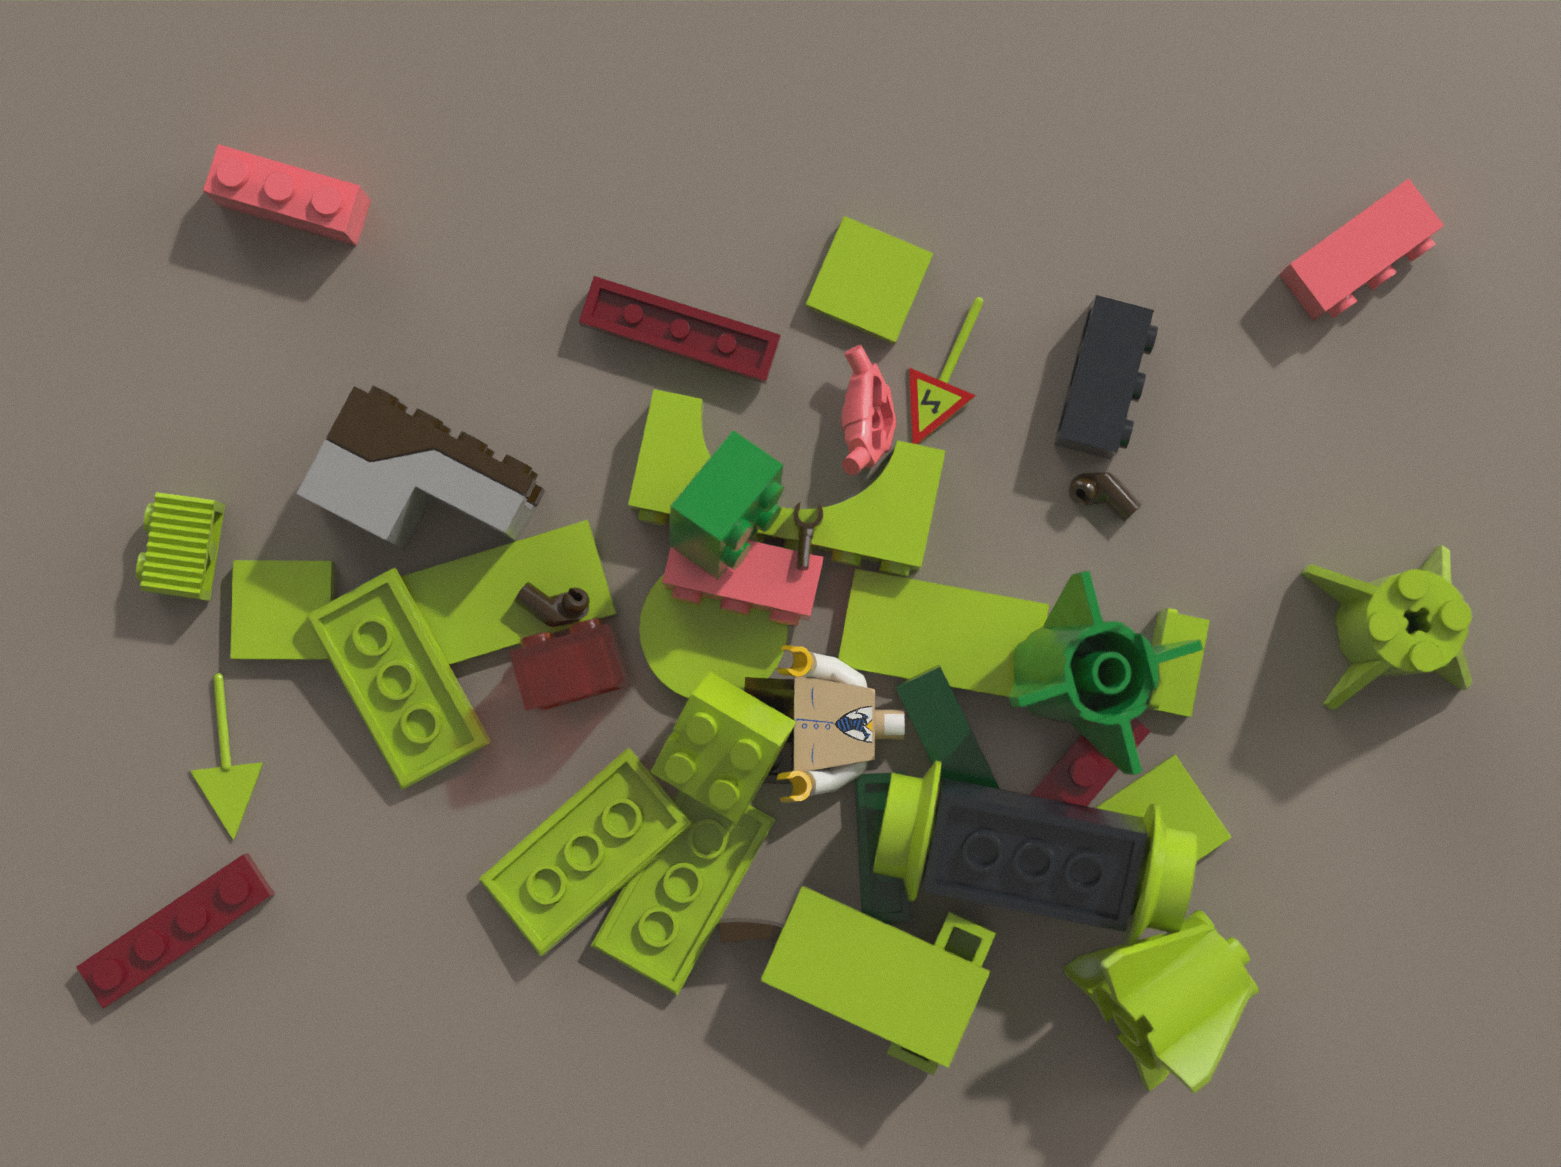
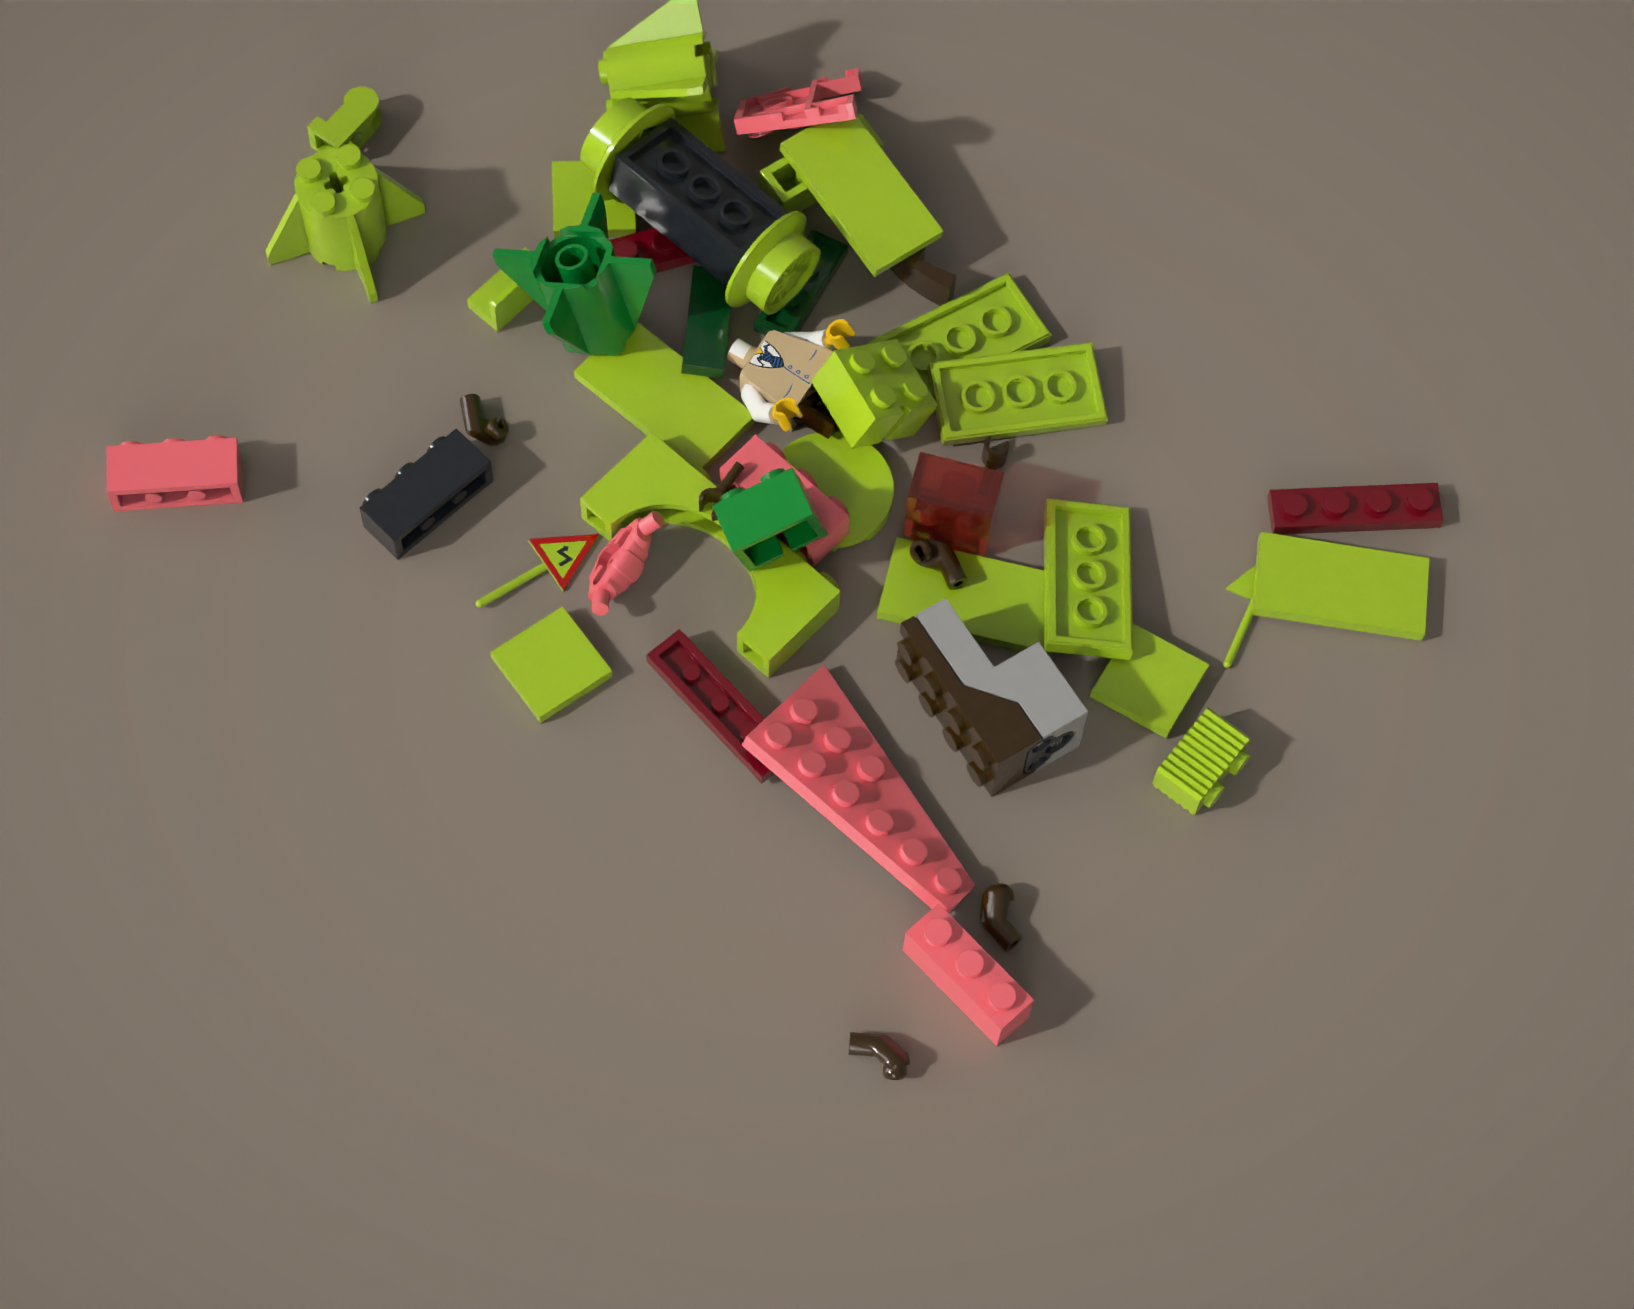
camera: 155 degrees left, 20 degrees down
(144, 828) = (1341, 586): none -> lime tile
(300, 279) = (994, 915): none -> dark brown arm
(327, 87) = (884, 1049): none -> dark brown arm
(522, 326) = (841, 770): none -> coral wing
(568, 753) = (993, 459): none -> dark brown hand
(1025, 1039) = (799, 107): none -> coral wing
(1466, 749) = (350, 123): none -> lime leg

